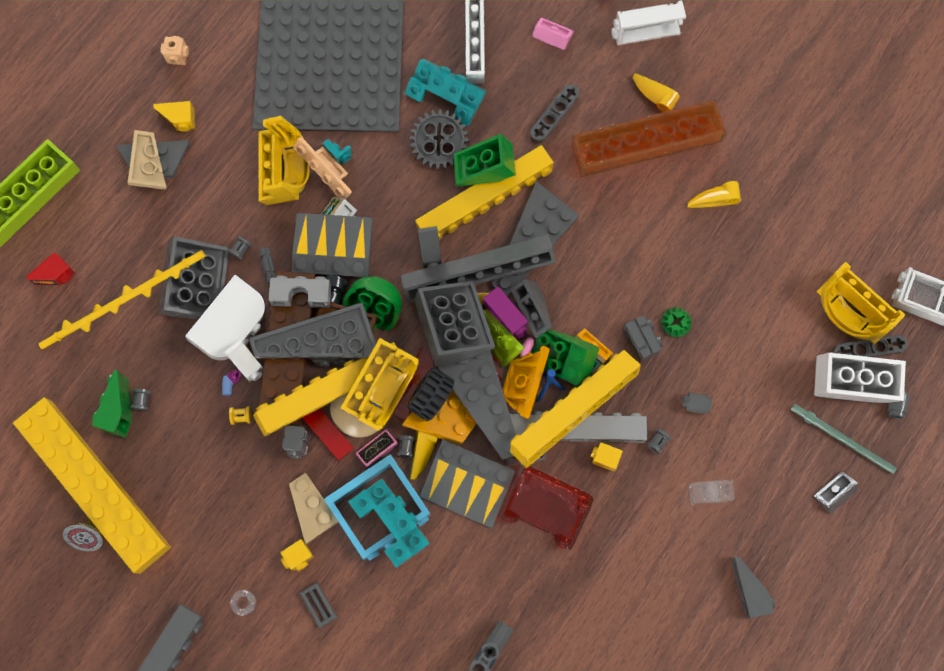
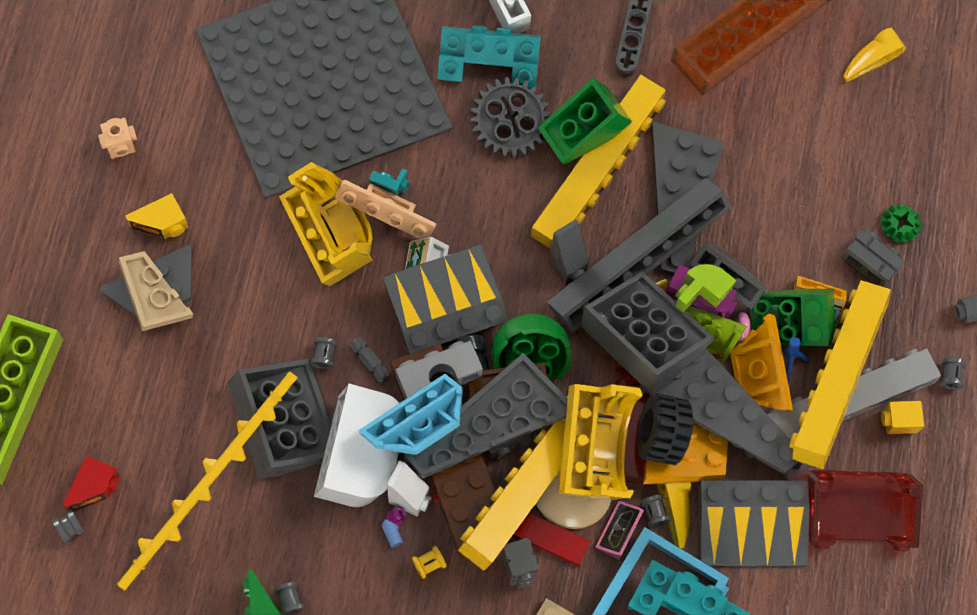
camera: 30 degrees left, 5 degrees down
(25, 292) = (68, 526): none -> dark grey wheel
(264, 317) = (418, 419): none -> medium azure wedge
(507, 305) = (706, 281): none -> lime brick

